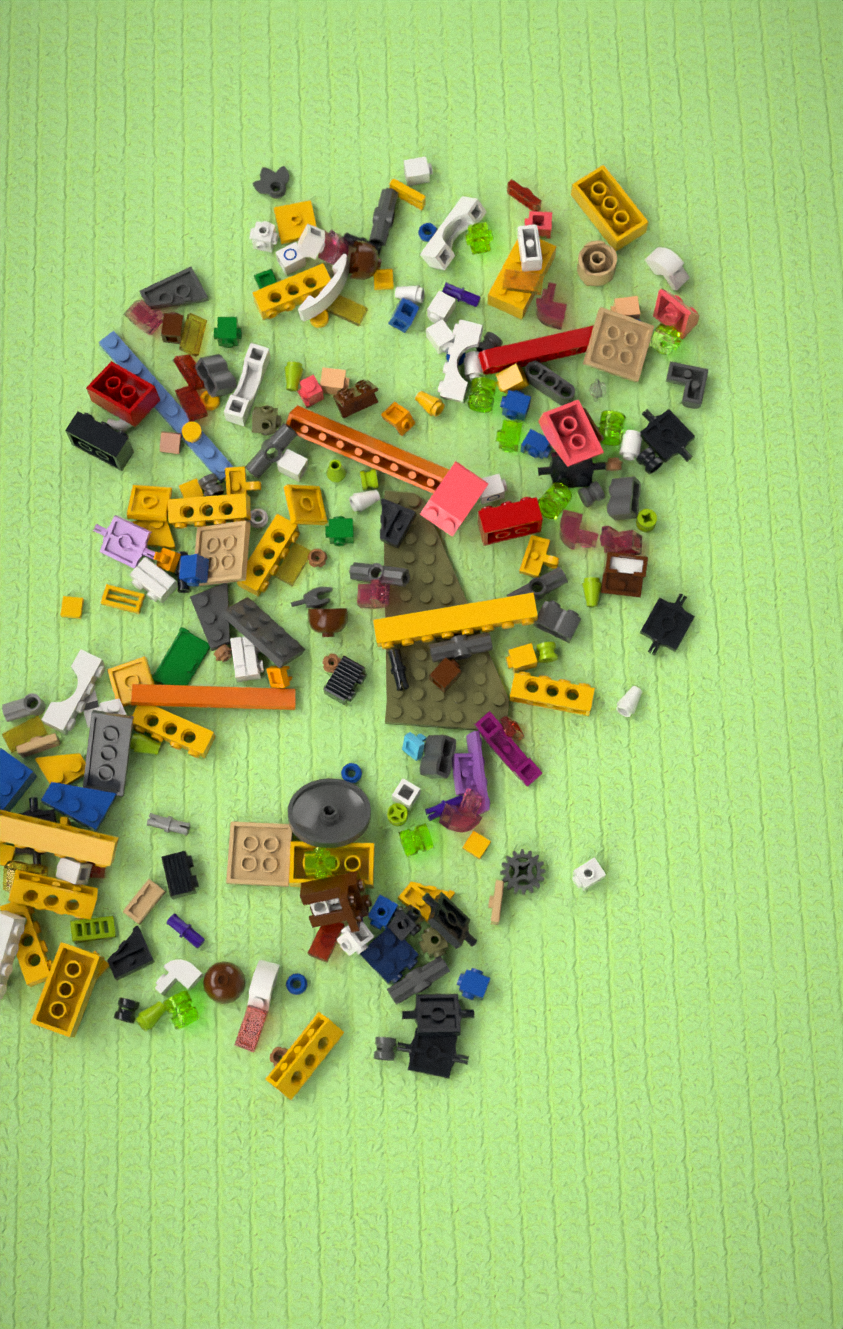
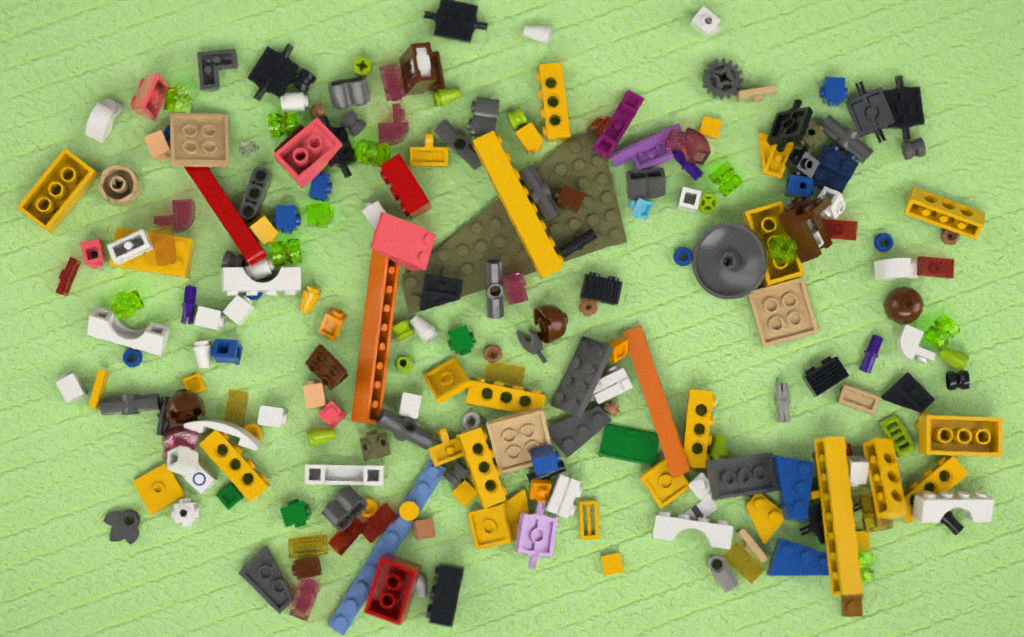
camera: 110 degrees left, 10 degrees up
(327, 337) = (272, 416): none -> white brick

